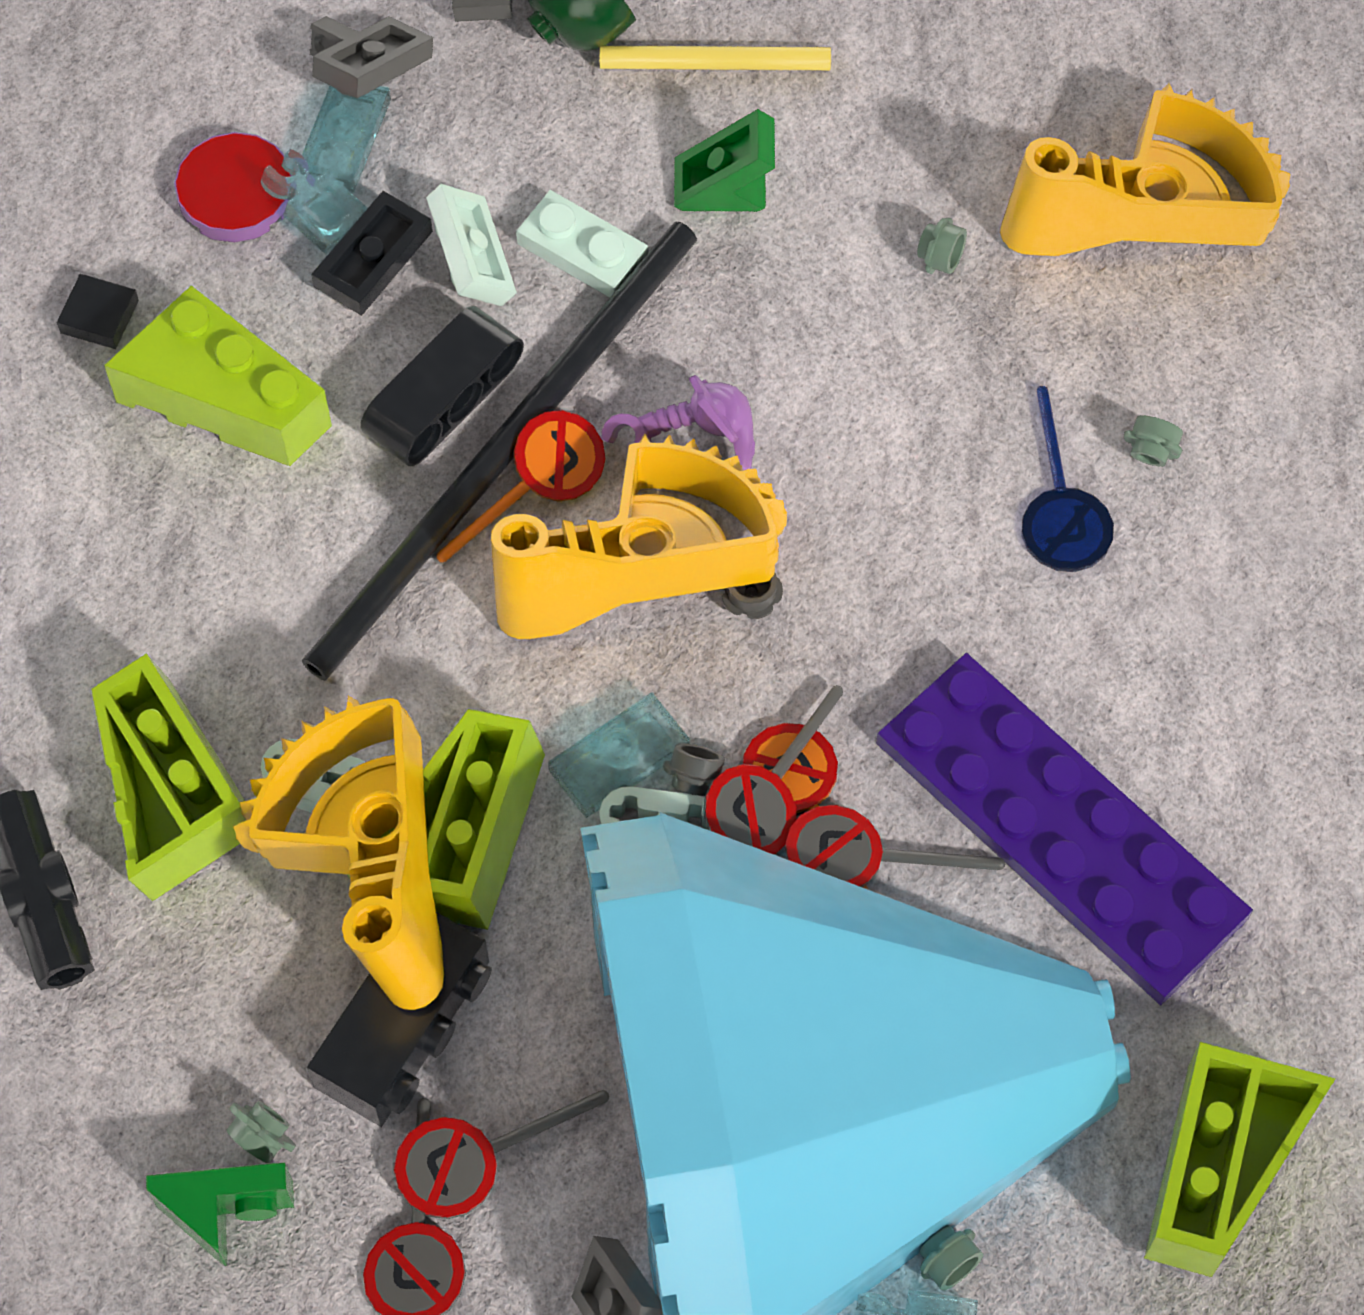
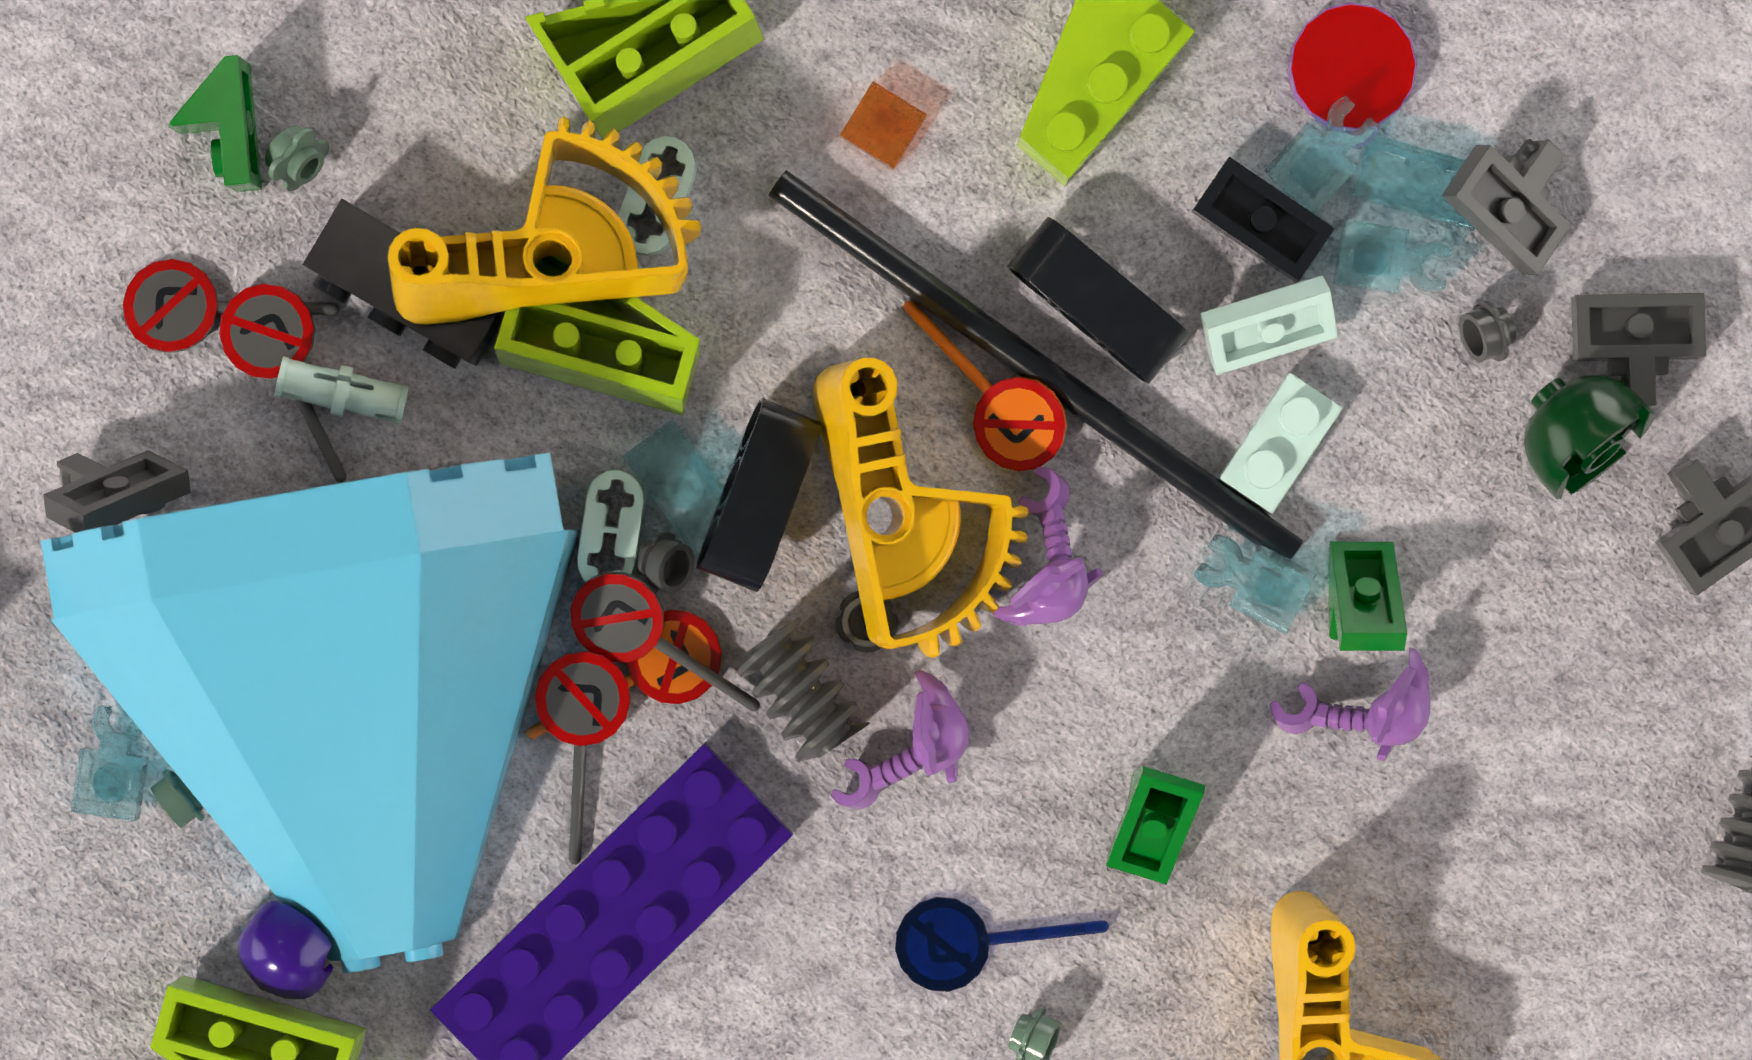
camera: 90 degrees right, 25 degrees up
(263, 577) = (883, 125): none -> clear orange tile
(413, 161) = (1378, 258): none -> clear light blue plate
(483, 79) = (1487, 332): none -> dark grey plate
(511, 1084) = (341, 390): none -> light aqua pin
(626, 672) = (759, 495): none -> black beam
(715, 58) = (1522, 587): light yellow bar -> none
(716, 250) = (1265, 586): none -> clear light blue plate
(821, 636) = (800, 692): none -> dark grey piece
(837, 142) = (1391, 720): none -> medium lavender piece
(872, 514) = (938, 744): none -> medium lavender piece
(940, 329) = (1154, 824): none -> green slope
(942, 246) = (1272, 827): sand green plate -> none
(1110, 1135) = (284, 952): none -> dark purple hair

